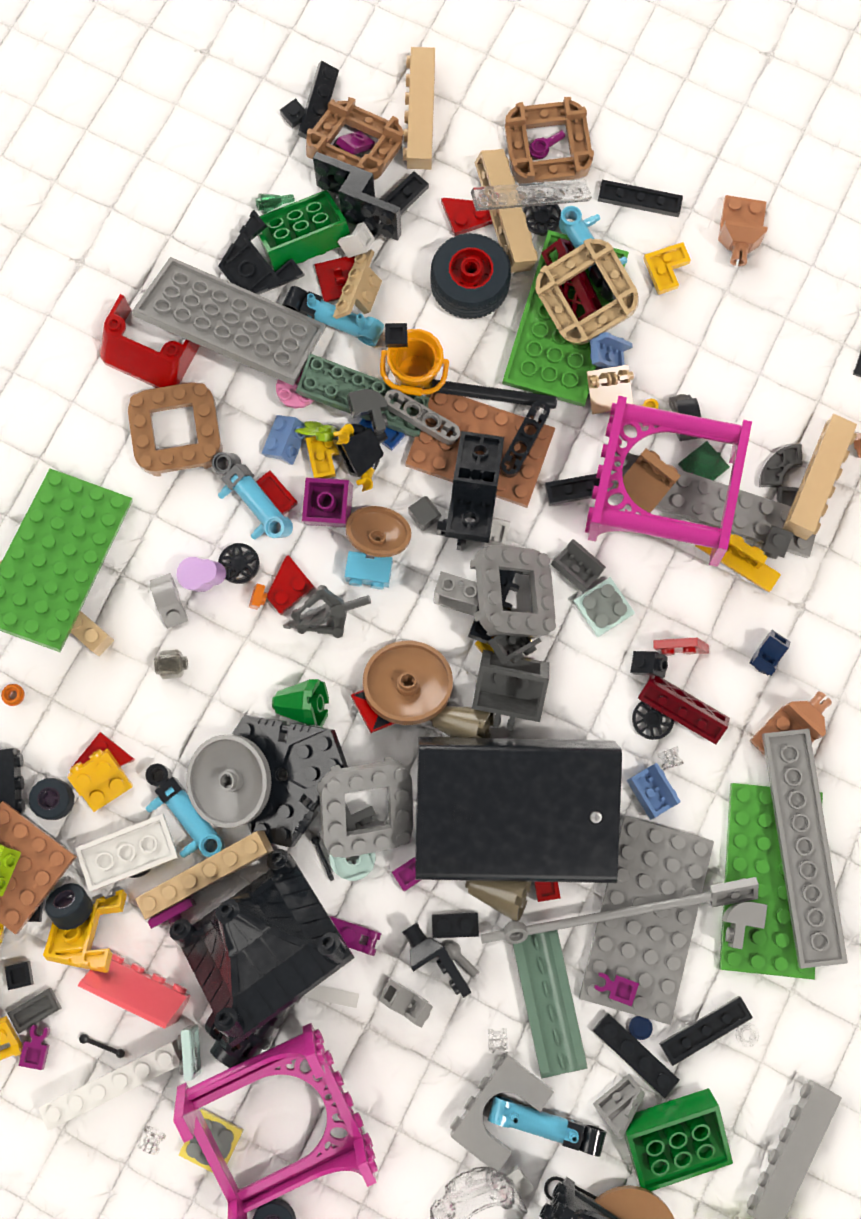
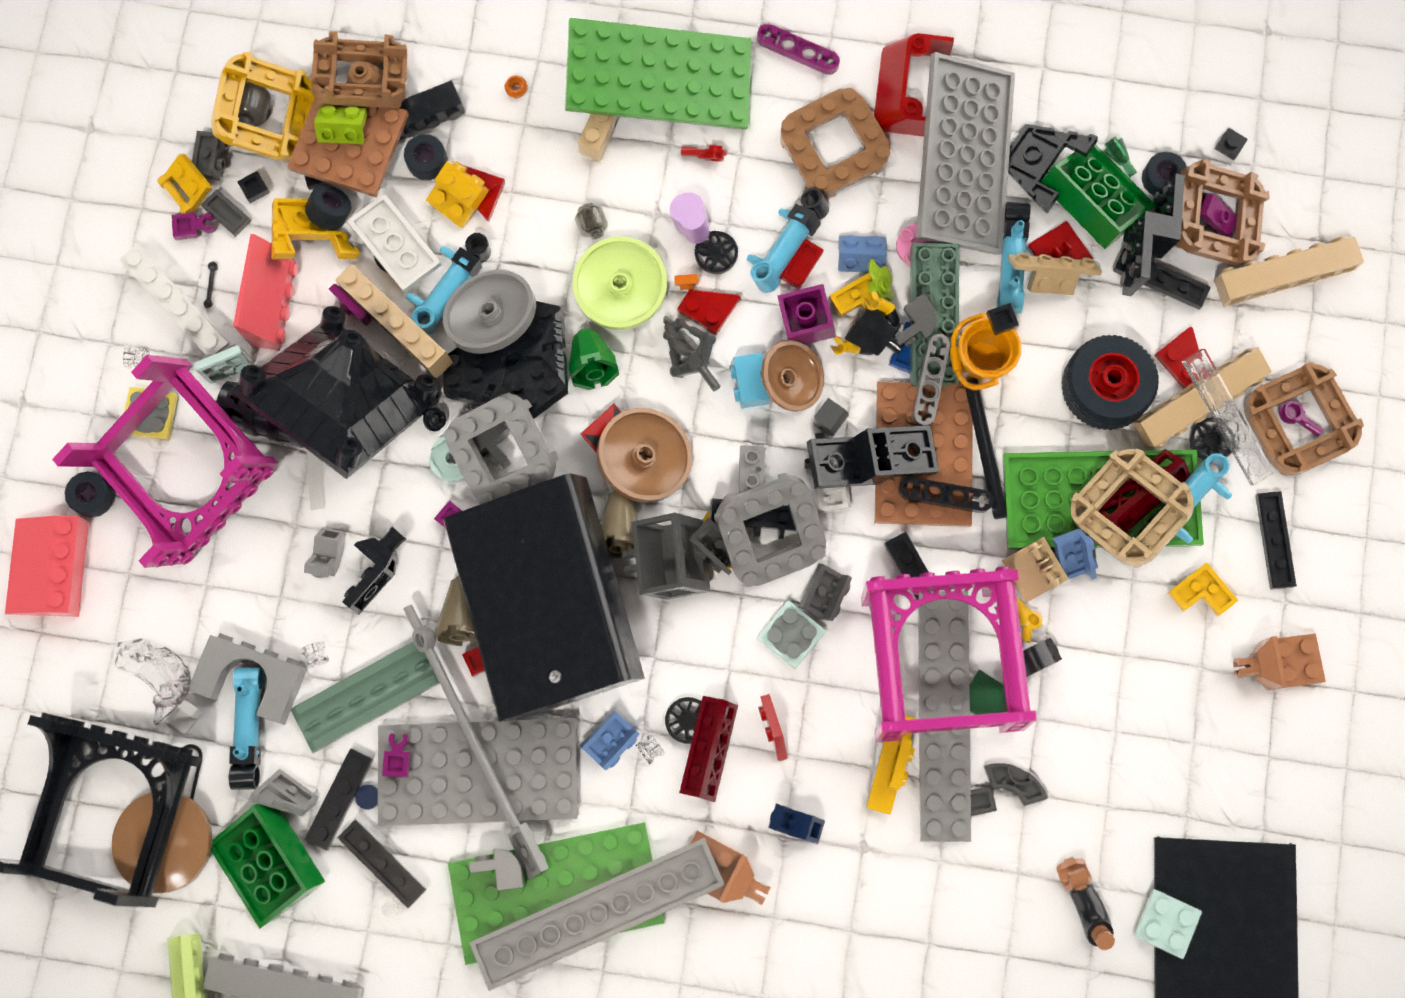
camera: 75 degrees right, 0 degrees up
(71, 429) = (800, 45): none -> magenta beam
(146, 535) = (714, 153): none -> red plate
(167, 600) = (652, 194): light grey brick -> none
(240, 655) = (620, 283): none -> yellowish green dish
(300, 173) = (1161, 165): none -> black wheel
(310, 864) = (439, 419): none -> black plate
(315, 840) = (429, 443): black hinge -> none
(319, 97) = (1260, 162): black plate -> none
(352, 935) = (378, 480): magenta plate -> none
(358, 242) = (1105, 254): white panel -> none
(454, 952) = (389, 587): light grey bar -> none
(455, 925) = (416, 580): black plate -> none
(649, 480) = (938, 634): medium nougat bracket -> none
(649, 663) = (744, 699): black bracket -> none
(777, 542) = (922, 797): dark grey bracket -> none
(820, 477) = (1015, 826): tan brick -> none

